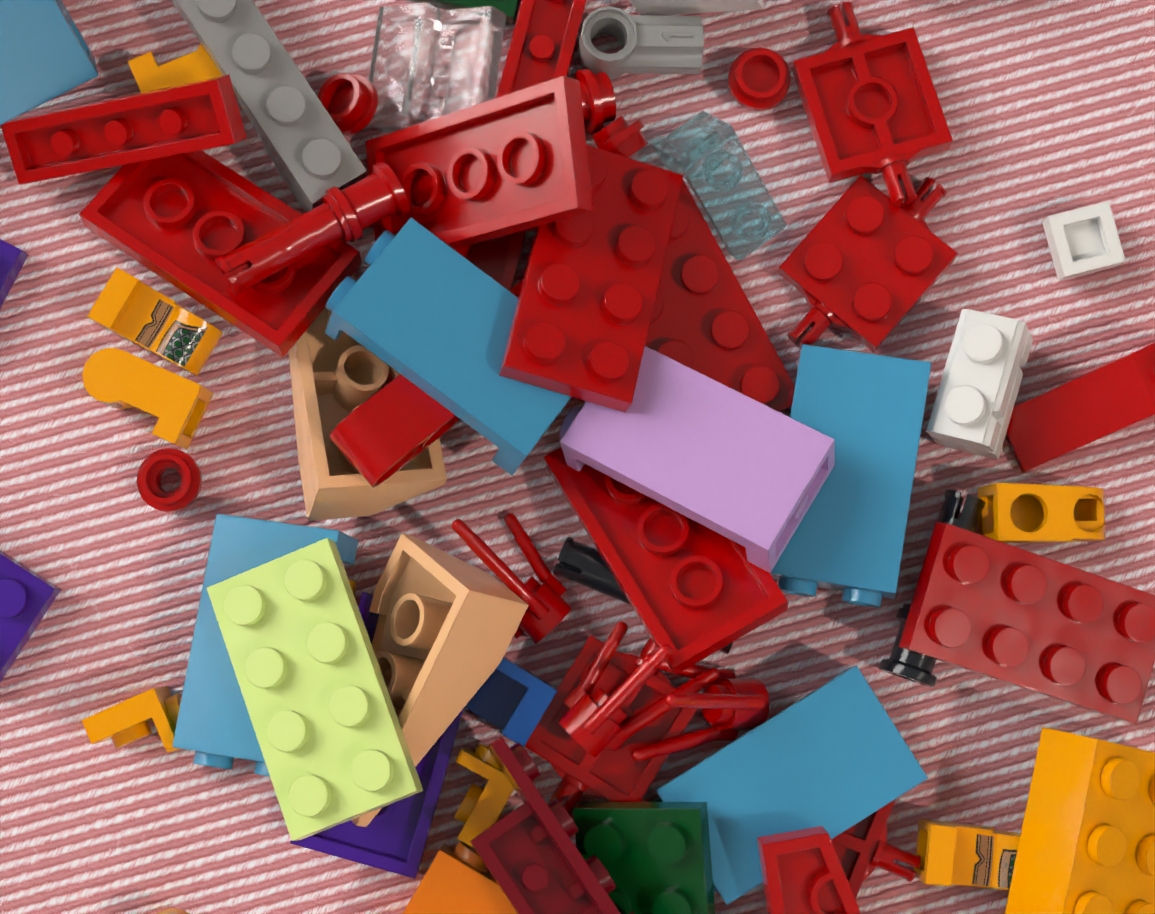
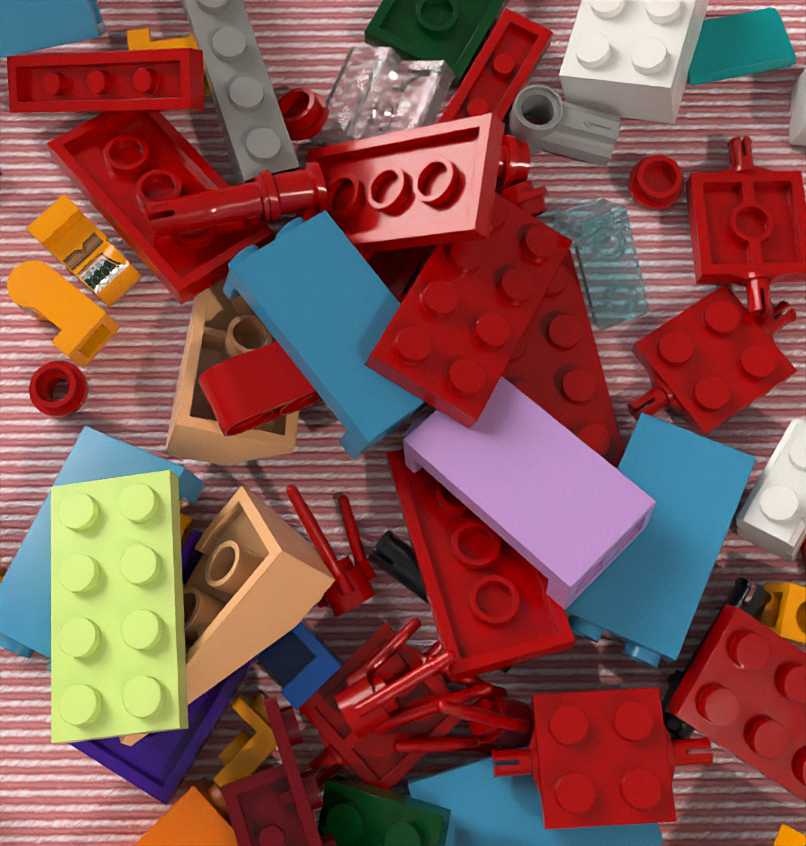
camera: 15 degrees right, 5 degrees down
(844, 710) = (602, 758): none -> red plate

